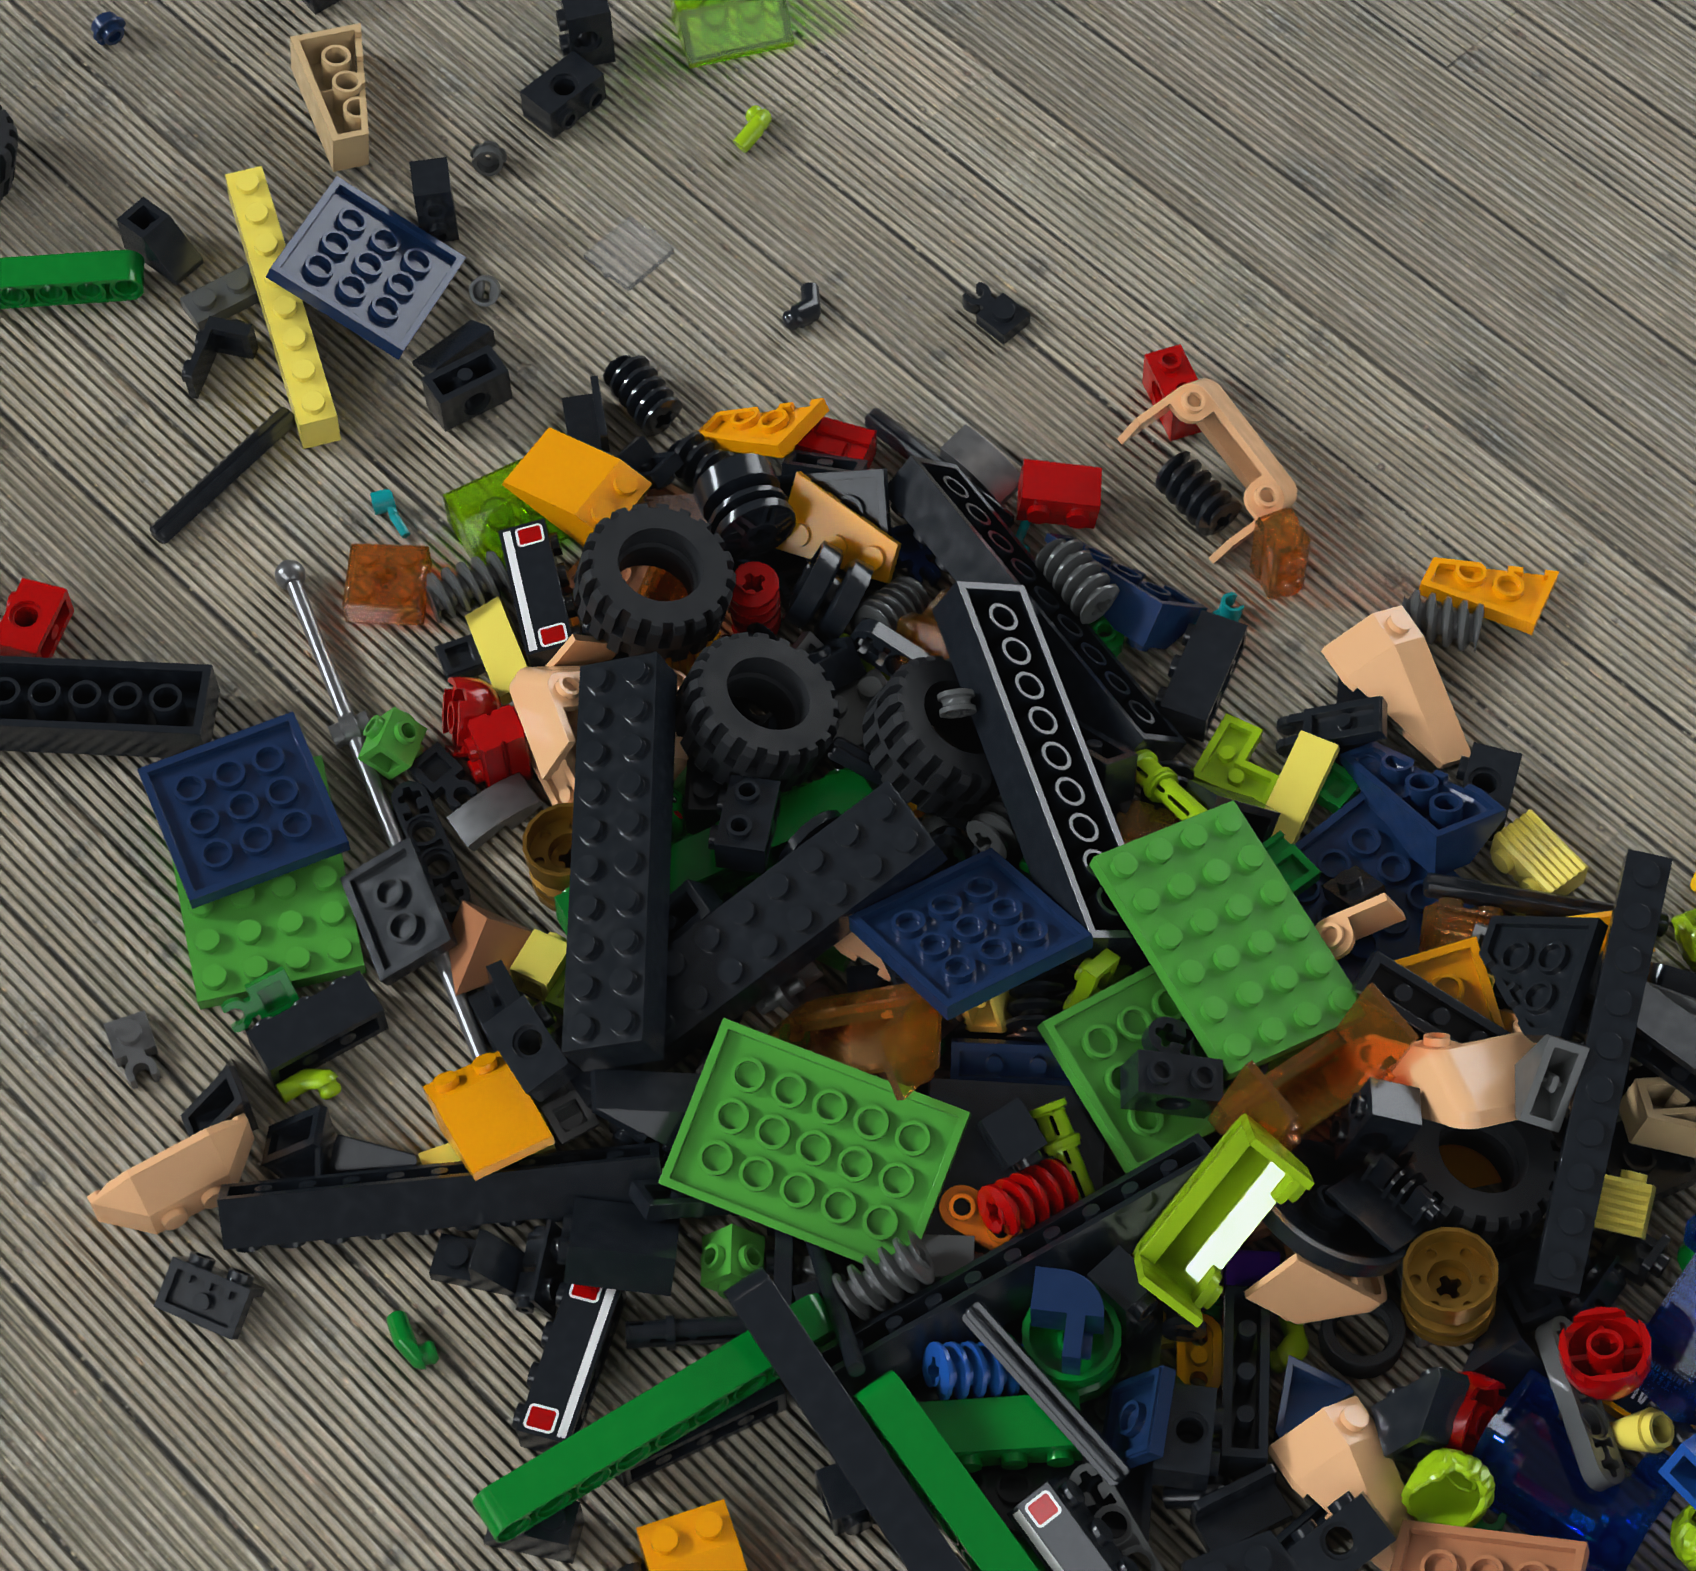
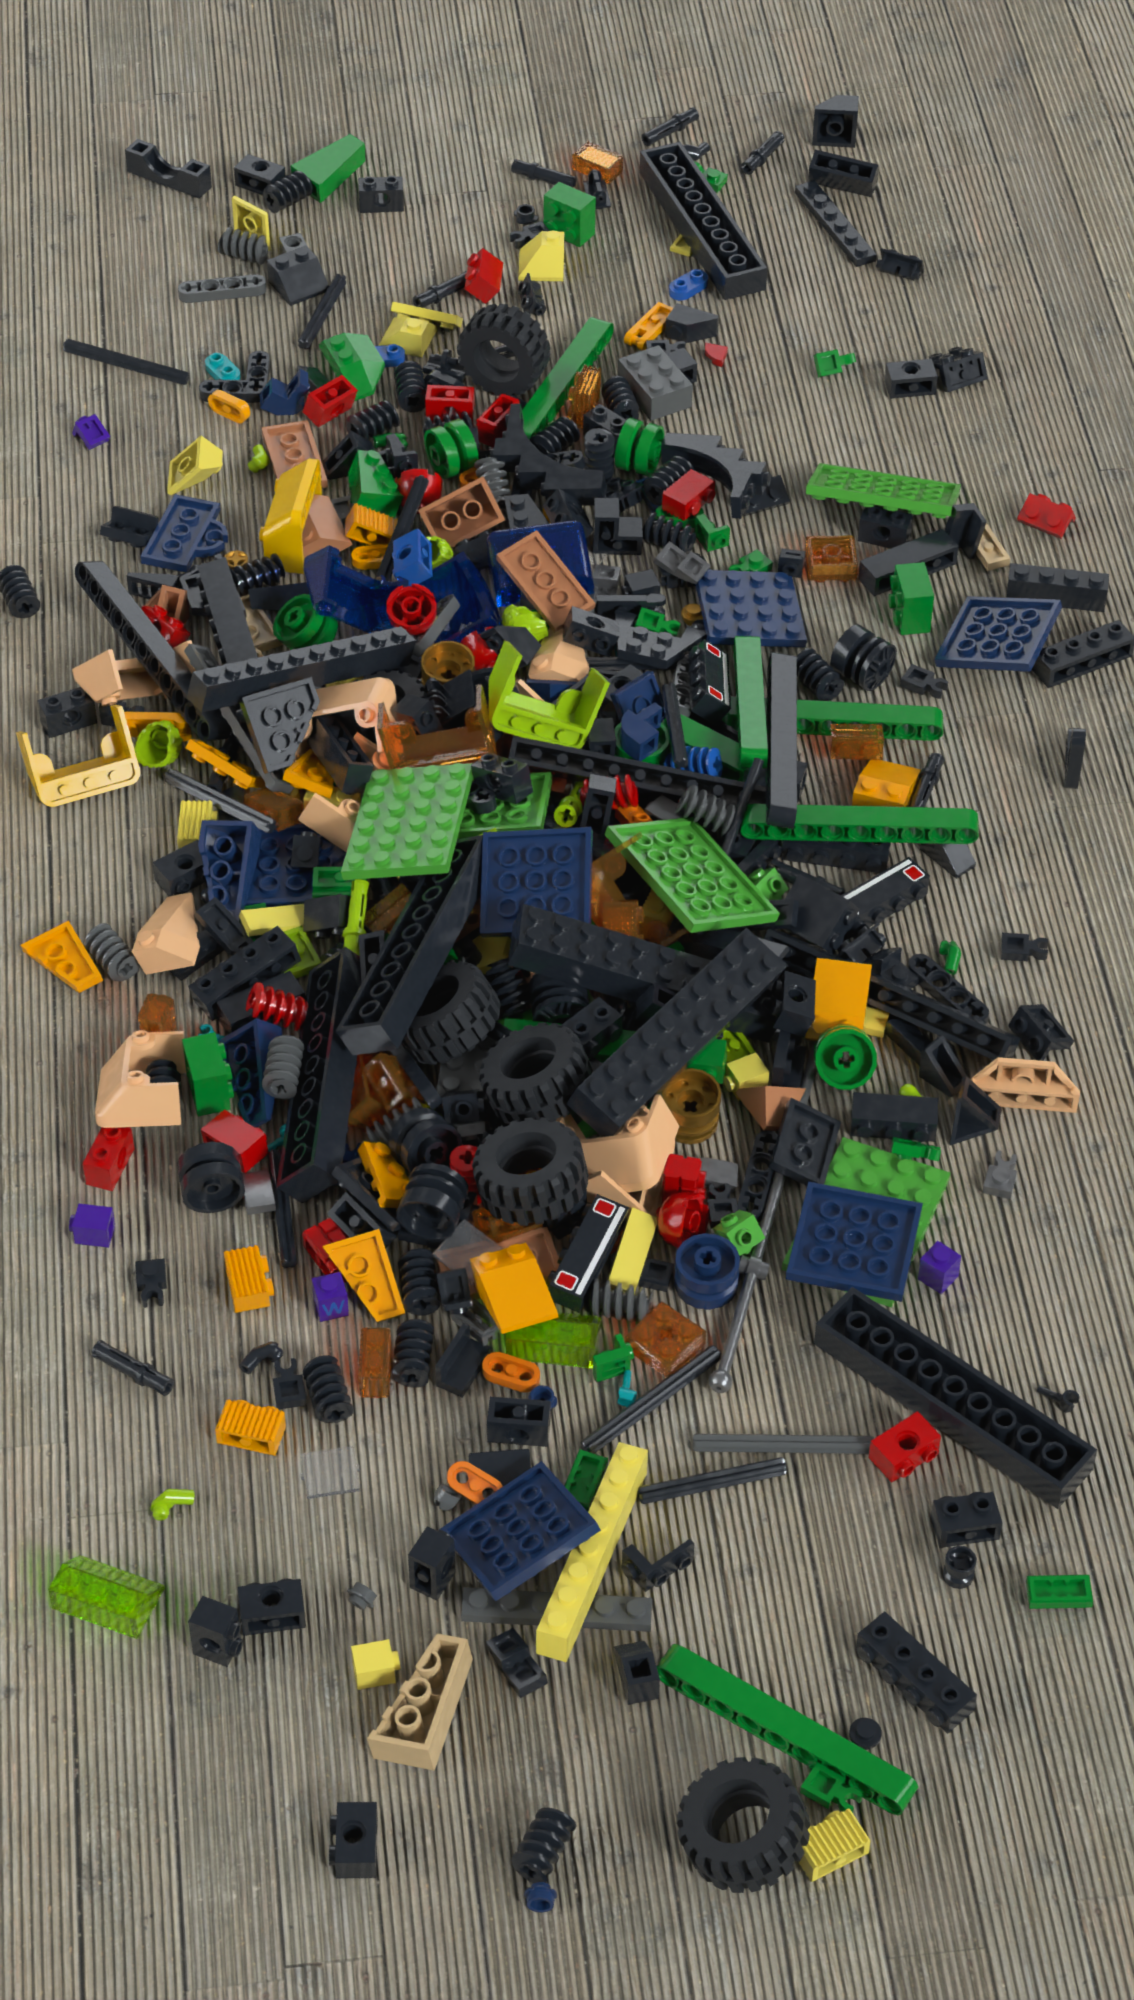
camera: 145 degrees left, 10 degrees down
(126, 857) = (939, 1267): none -> dark purple brick
(134, 59) = (542, 1844): none -> black piece
(173, 559) = (782, 1443): none -> dark grey axle
(293, 197) = (516, 1663): none -> black slope
(324, 1417) = (1019, 947): none -> black plate
(353, 517) = (651, 1400): none -> black axle
(358, 389) = (586, 1477): none -> green plate
(375, 1289) = (951, 989): none -> black beam
(396, 670) = (706, 1271): none -> dark blue wheel
(421, 106) = (374, 1664): none -> light yellow brick
(423, 1041) = (847, 1073): none -> green wheel
(424, 521) = (613, 1362): none -> green bracket
(463, 308) = (476, 1483): none -> orange plate
(468, 435) = (543, 1393): none -> dark blue plate
(515, 443) = (512, 1372): none -> orange plate
(676, 360) = (374, 1362): none -> clear orange brick
(694, 305) = (327, 1389): none -> black piece
(741, 229) = (251, 1427): none -> light orange brick
(744, 291) = (288, 1387): none -> black plate
(785, 386) = (330, 1296): none -> dark purple brick
(828, 987) = (623, 917): none -> clear orange brick
(893, 364) = (247, 1278): none -> light orange brick
(912, 216) = (142, 1373): none -> black pin
(956, 703) = (440, 981): dark grey bush -> none
(1031, 418) = (210, 1177): none -> black wheel
(1111, 317) = (92, 1225): none -> dark purple brick
(1161, 646) = (277, 1005): none -> red piece
(1163, 532) = (208, 1073): none -> green brick
(1257, 690) = (255, 963): none -> black brick
(1547, 1081) = (332, 677): dark grey slope -> none

